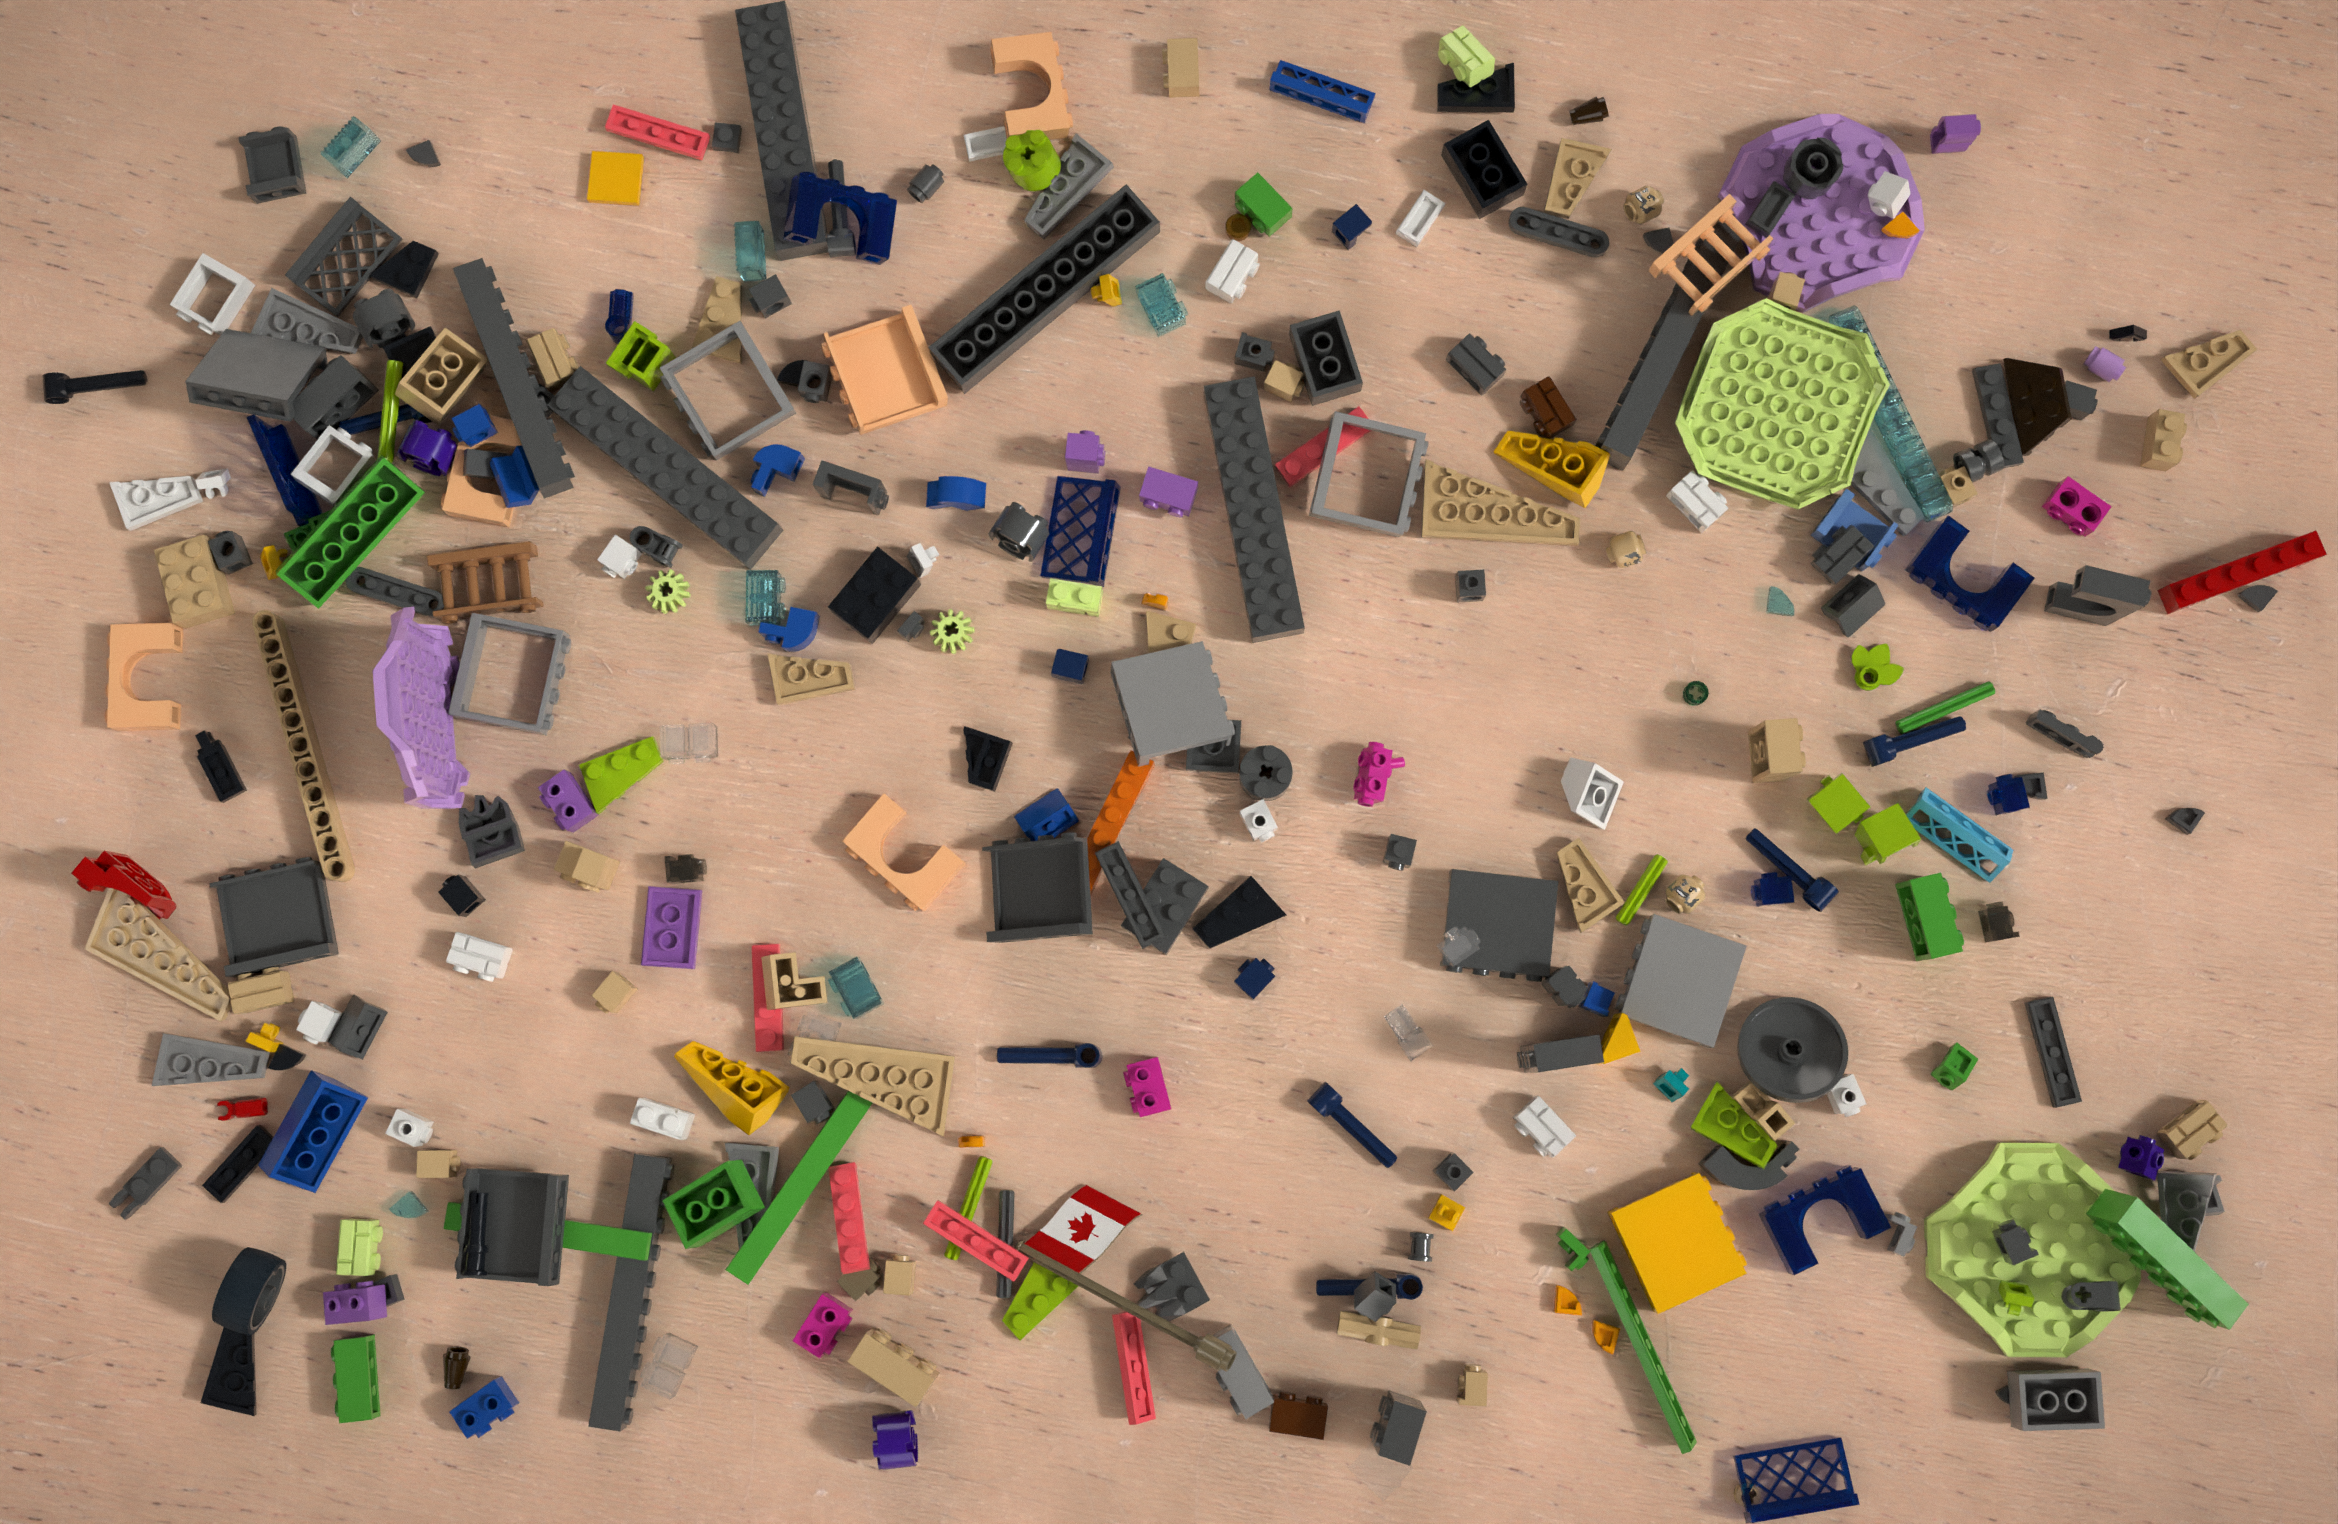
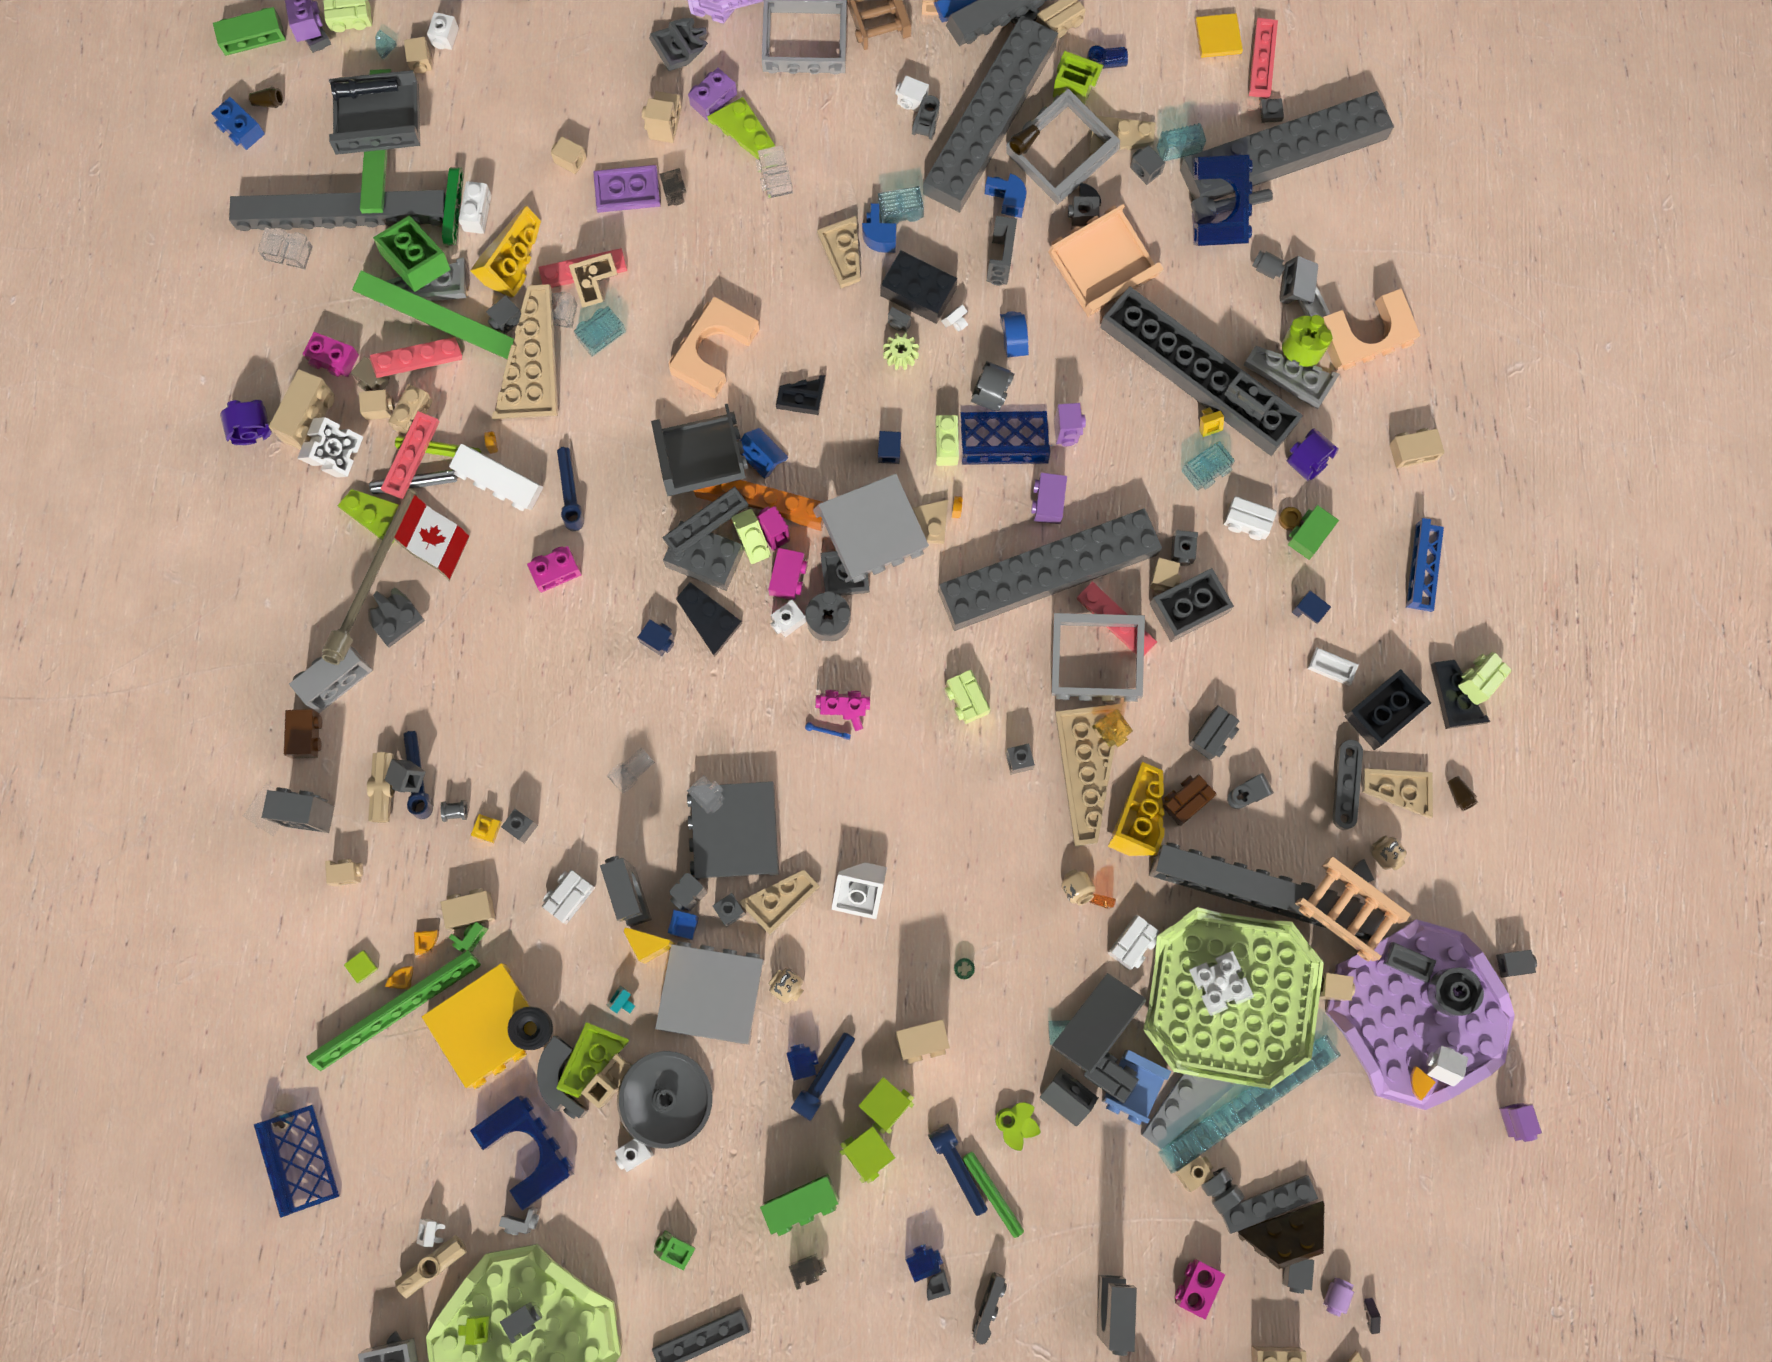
camera: 70 degrees right, 5 degrees down
(461, 895) = (626, 32): black brick -> none
(479, 955) = (582, 54): white brick -> none
(653, 1147) = (452, 206): none -> green beam
(672, 600) = (888, 127): yellowish green gear -> none
(715, 433) = (1023, 140): none -> dark brown cone
(915, 1234) = (410, 402): none -> tan brick
(949, 1337) = (330, 447): none -> white brick
(953, 153) = (1299, 280): none -> panel
(1023, 1139) = (496, 477): none -> white brick
(1097, 236) = (1251, 395): none -> dark grey brick
(1133, 1368) = (322, 597): coral plate -> none
(1148, 818) = (773, 527): none -> dark pink brick
(1155, 845) = (751, 536): none -> yellowish green brick
(1171, 185) = (1312, 454): none -> dark purple brick
(1206, 811) = (787, 574): none -> dark pink brick
(1328, 1103) = (563, 714): dark blue axle -> none
(1388, 631) = (967, 697): none -> yellowish green brick
(1389, 818) = (809, 726): none -> blue hinge
(1399, 852) = (780, 737): dark grey brick -> none
(1456, 474) = (1113, 728): none -> clear yellow brick
(1541, 1245) = (468, 909): none -> tan brick
(1549, 335) = (1252, 790): none -> dark grey piece
(1584, 1380) = (360, 966): none -> lime tile
(1589, 944) = (729, 910): none -> dark grey brick
(1641, 889) = (784, 949): lime axle -> none
(1646, 524) = (1103, 901): none -> clear orange tile
(1709, 1188) = (518, 1021): none -> black tyre
(1767, 412) = (1221, 983): none -> white brick
(1781, 556) = (1099, 1023): none -> dark grey tile
(1785, 98) = (1516, 963): none -> dark grey brick
(1897, 1340) = (426, 1232): none -> white tile
(1932, 568) = (1090, 1218): clear blue arch -> none
(1942, 1355) = (419, 1275): none -> tan piece
(1965, 829) = (884, 1225): medium azure fence -> none

